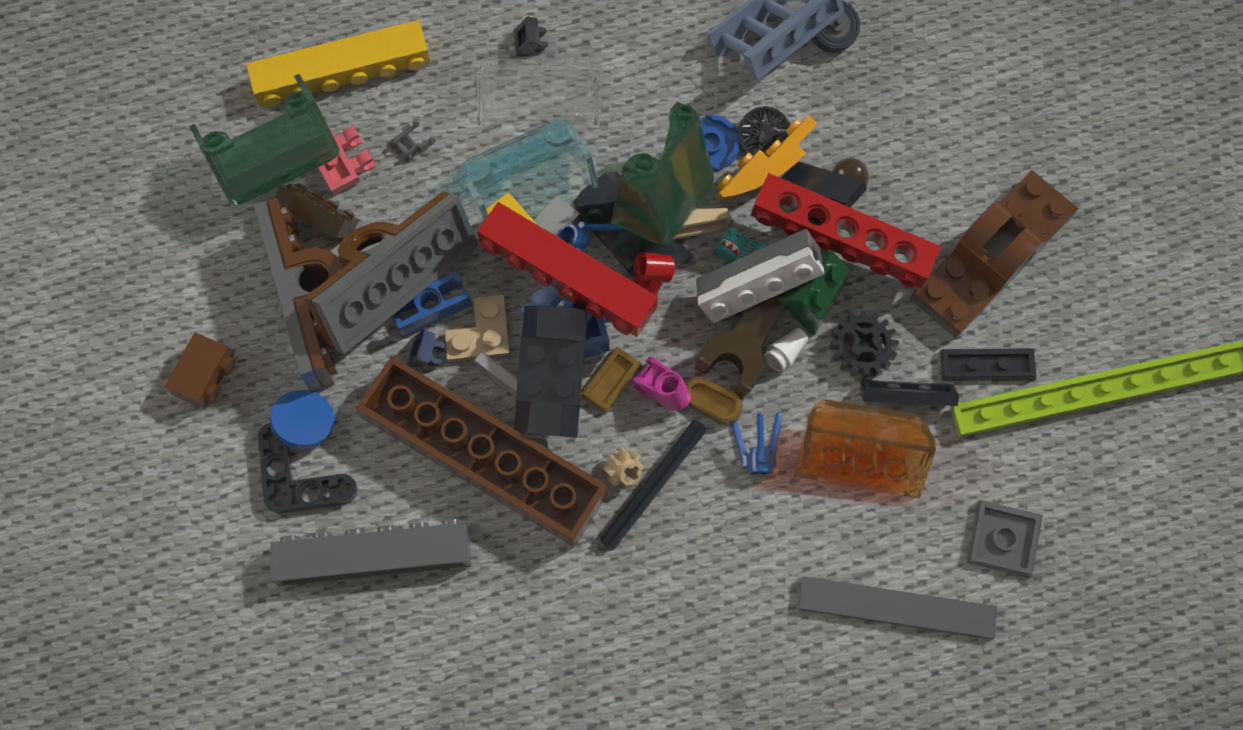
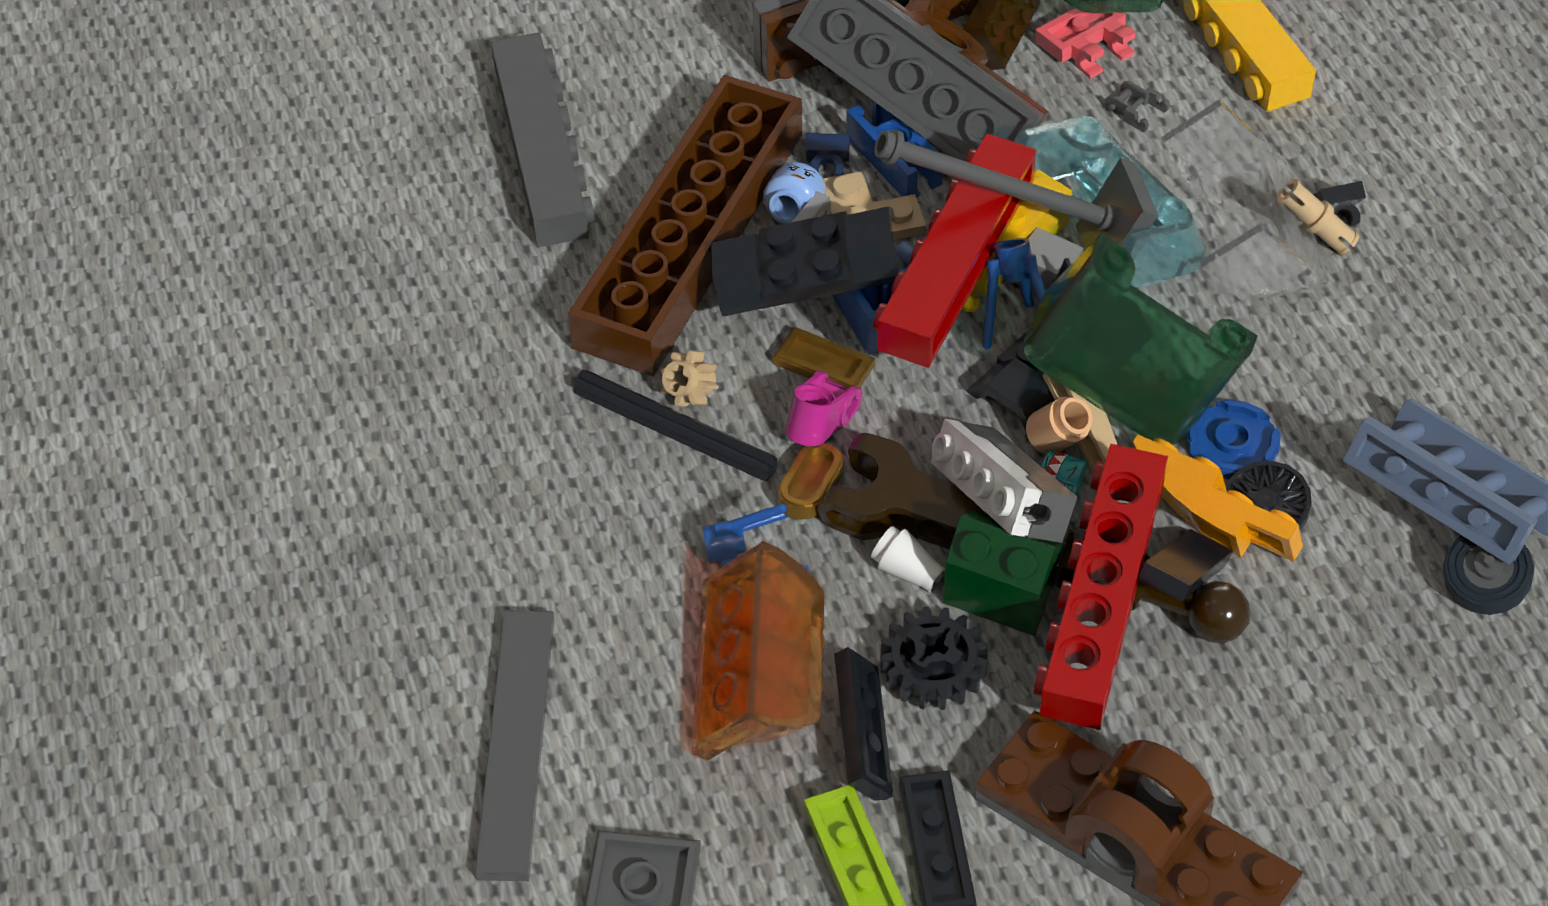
camera: 85 degrees right, 20 degrees down
(295, 489) = (620, 58): black beam -> none
(302, 419) = (709, 46): blue tile -> none
(464, 377) = (791, 190): none -> light blue head
(541, 172) = (1117, 210): none -> dark grey tile
(549, 50) = (1317, 217): none -> tan pin
(653, 270) = (982, 362): red piece -> none
(704, 237) = (1059, 424): none -> light nougat brick

